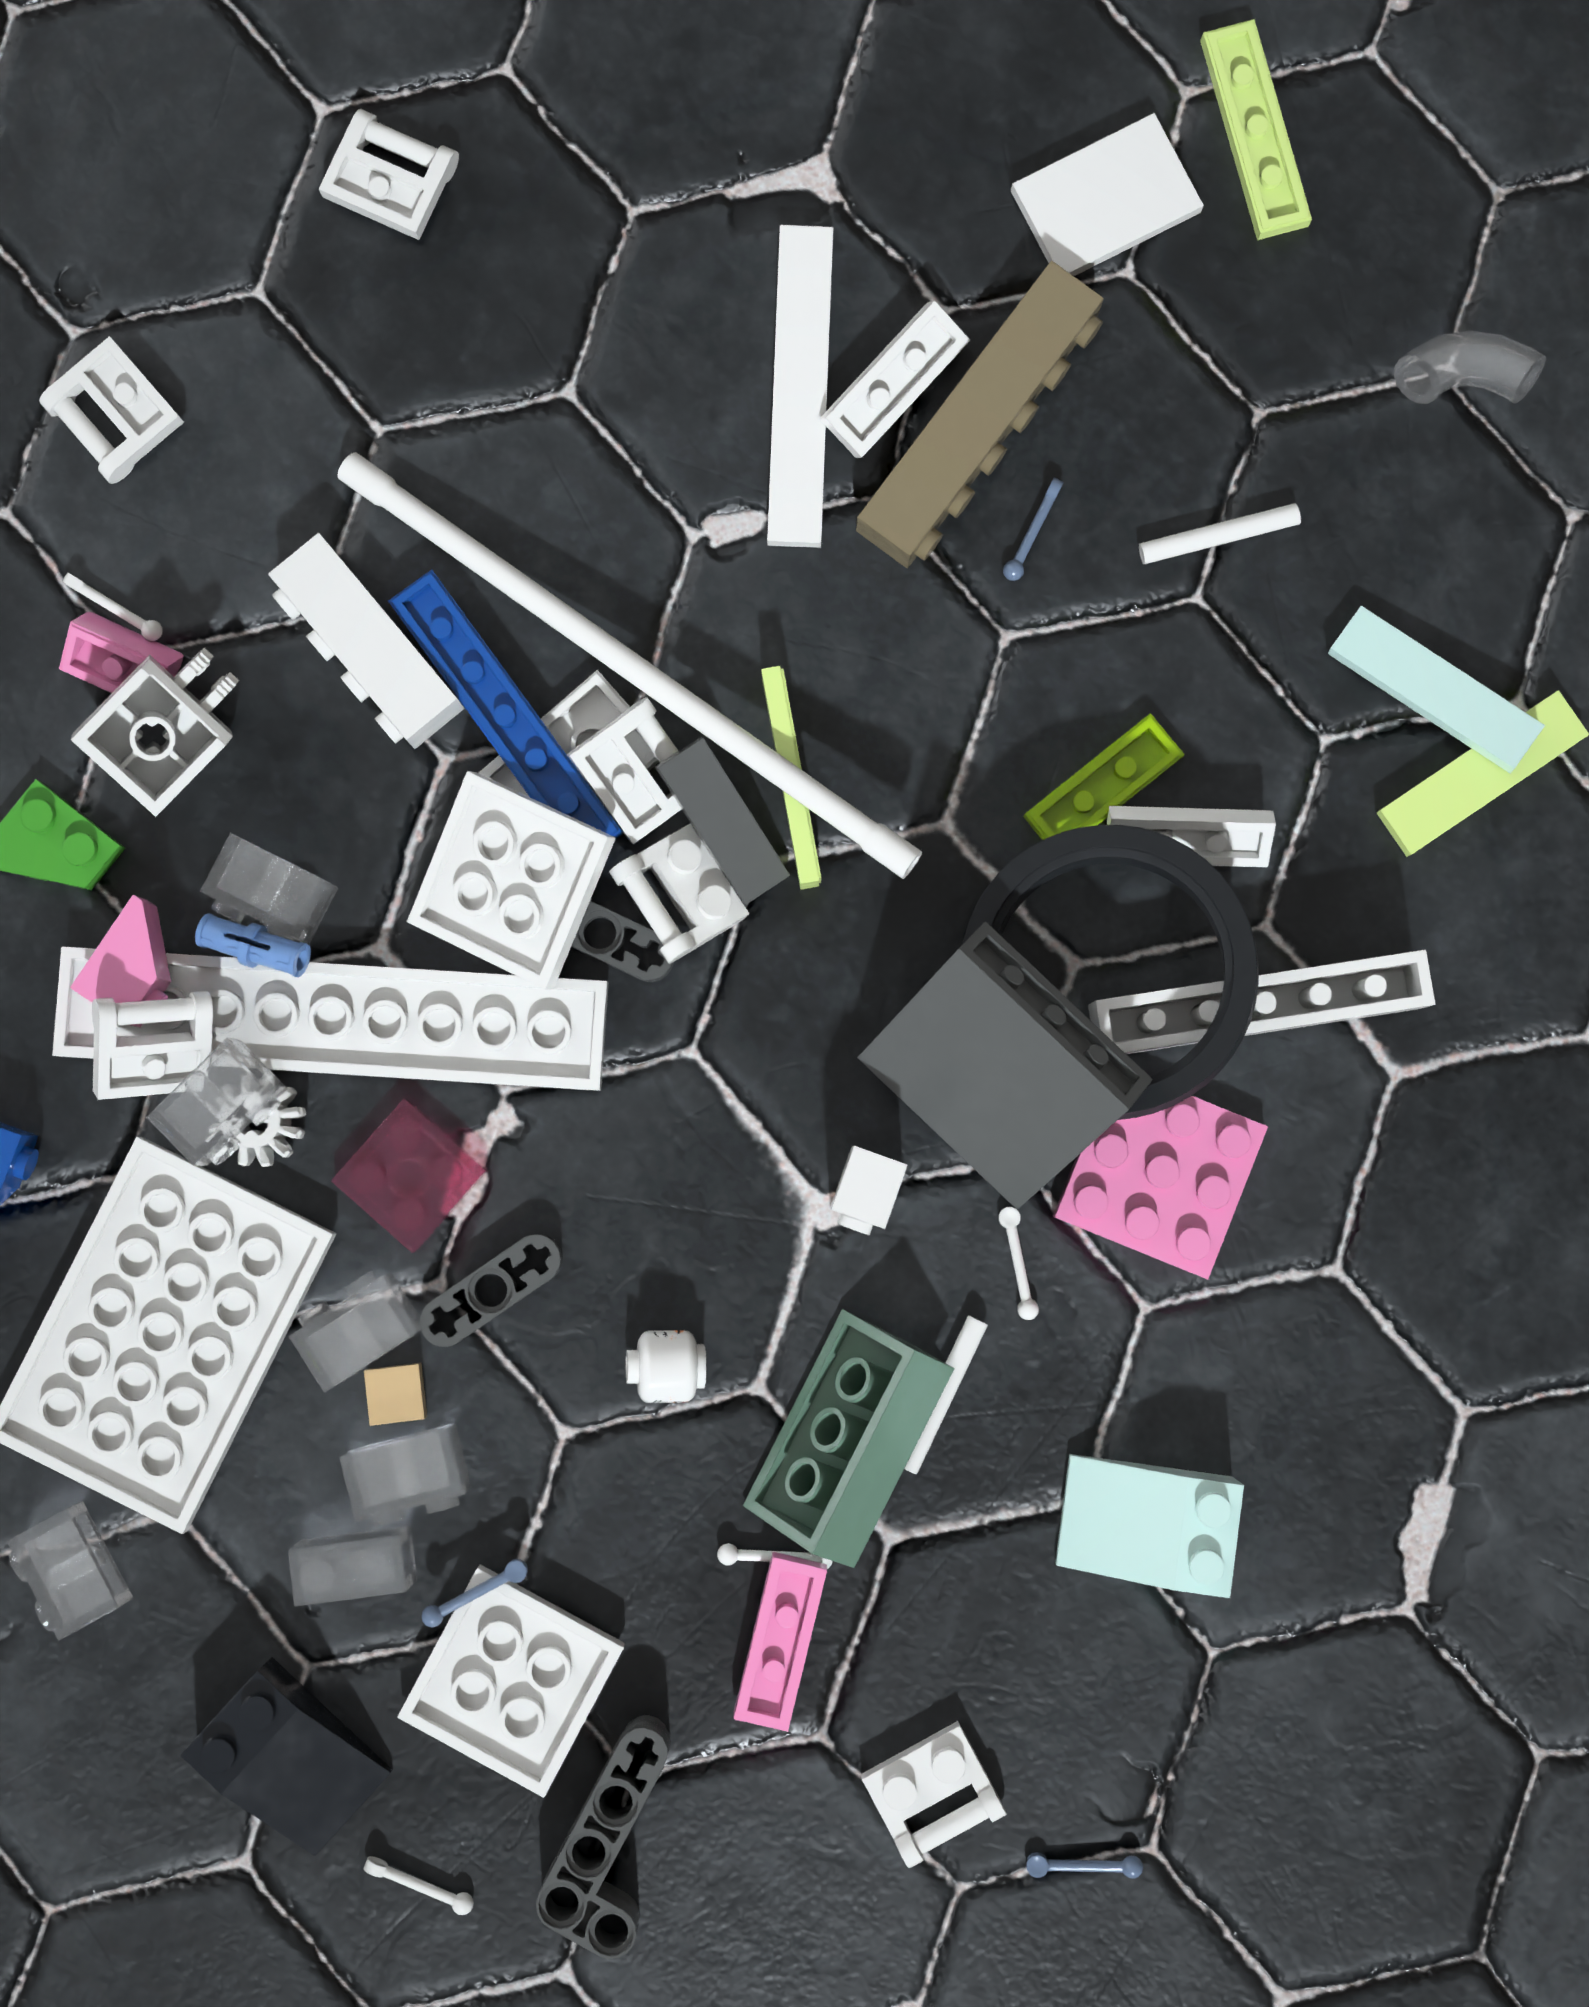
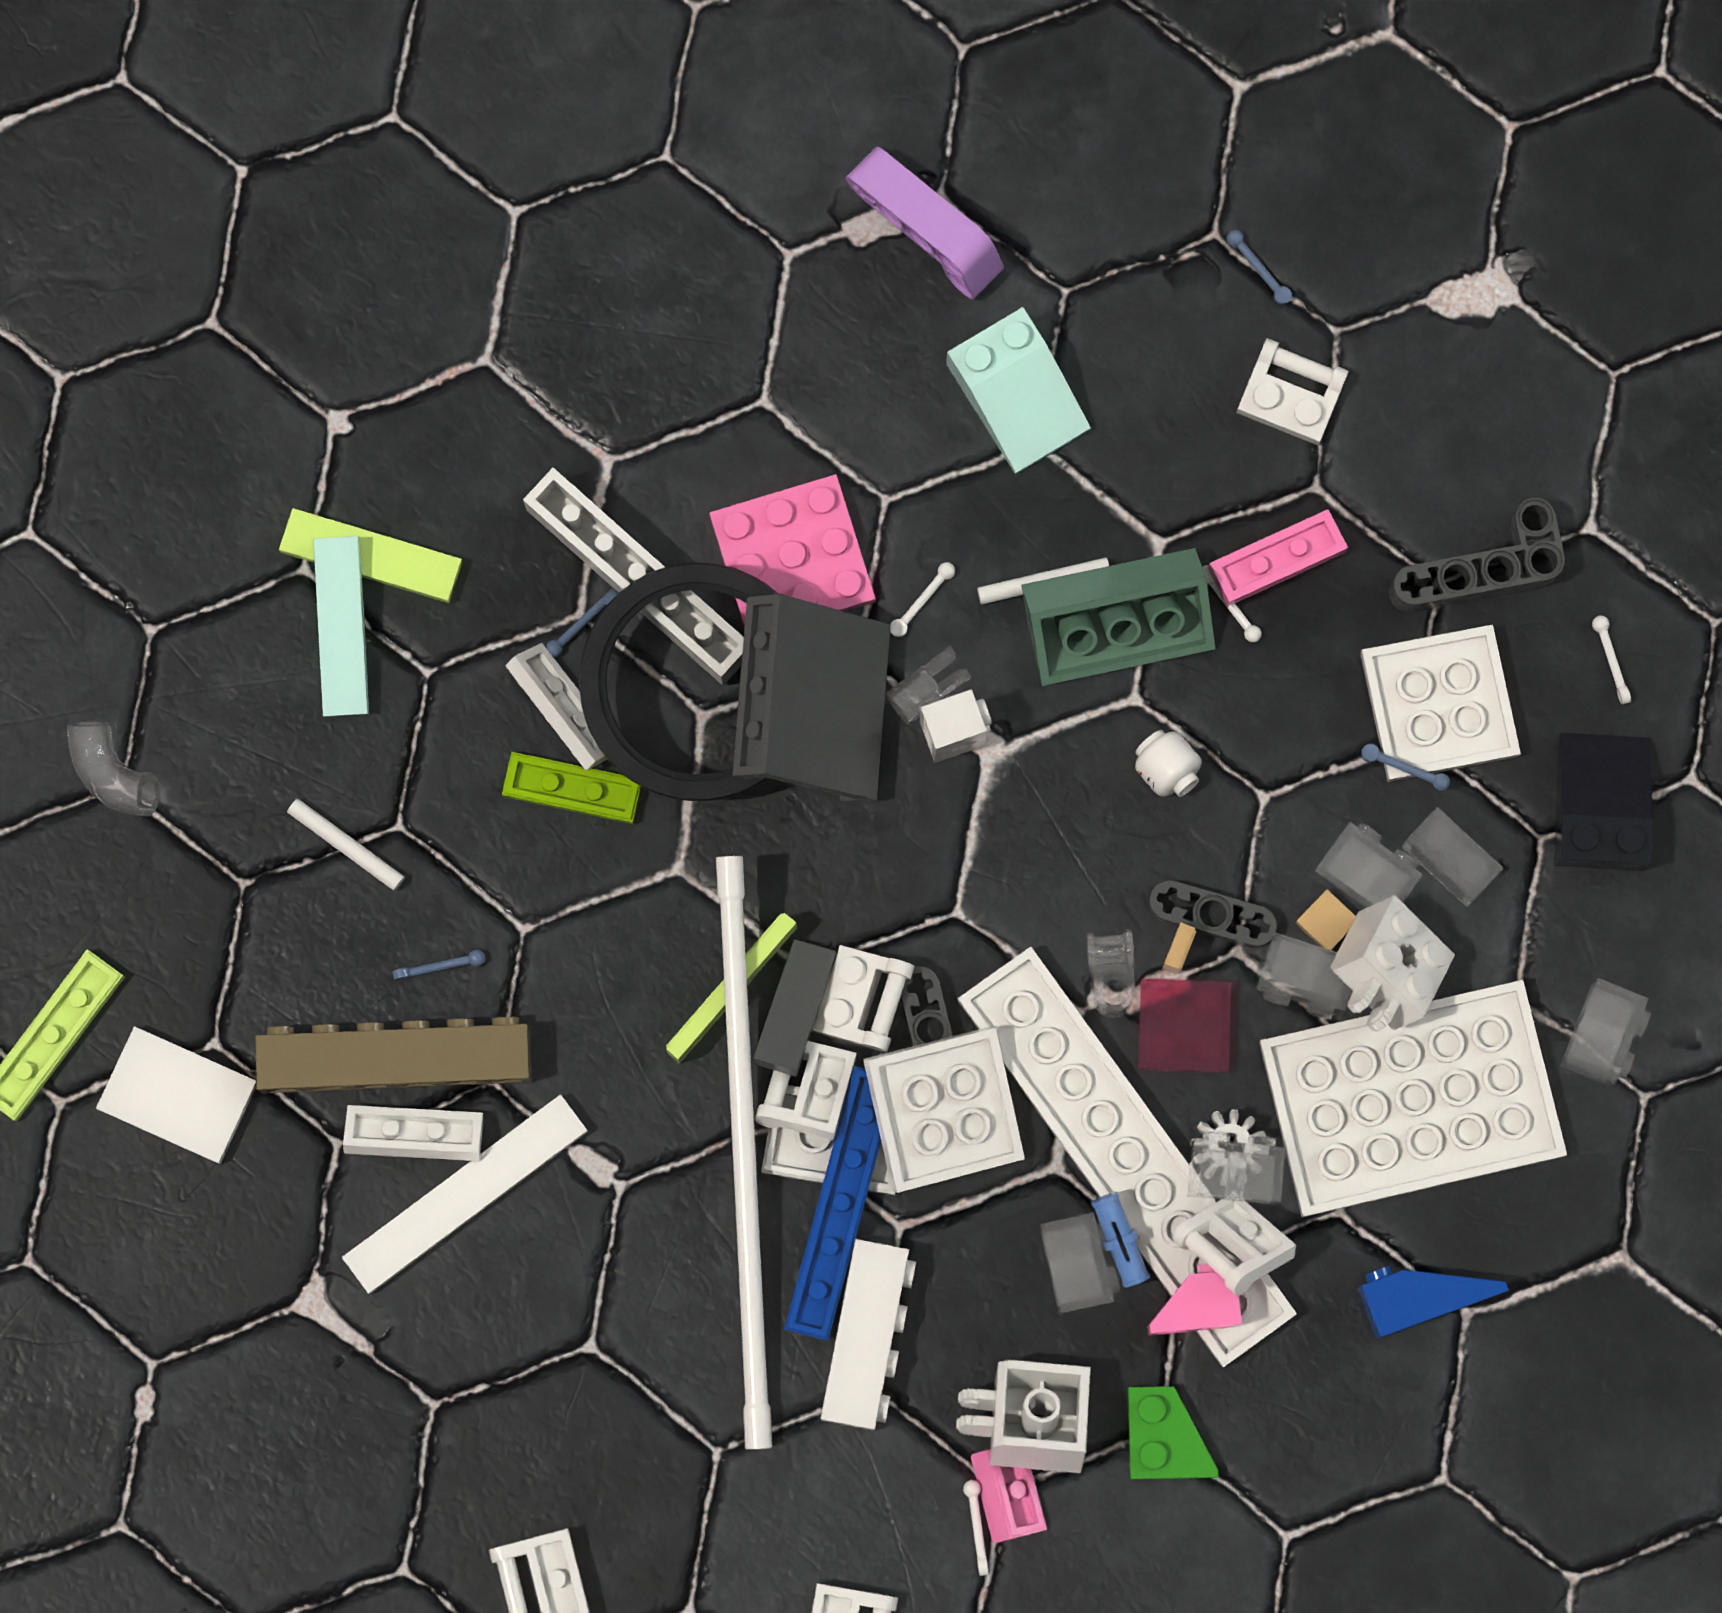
camera: 130 degrees left, 5 degrees down
(289, 1415) = (1391, 964): none -> white hinge
(482, 1229) = (1179, 948): none -> tan tile
(516, 1151) = (1110, 963): none -> clear piece
(929, 1184) = (921, 688): none -> clear hinge
(1253, 877) = (555, 647): none -> sand blue hinge
(1391, 1576) = (928, 220): none -> lavender beam

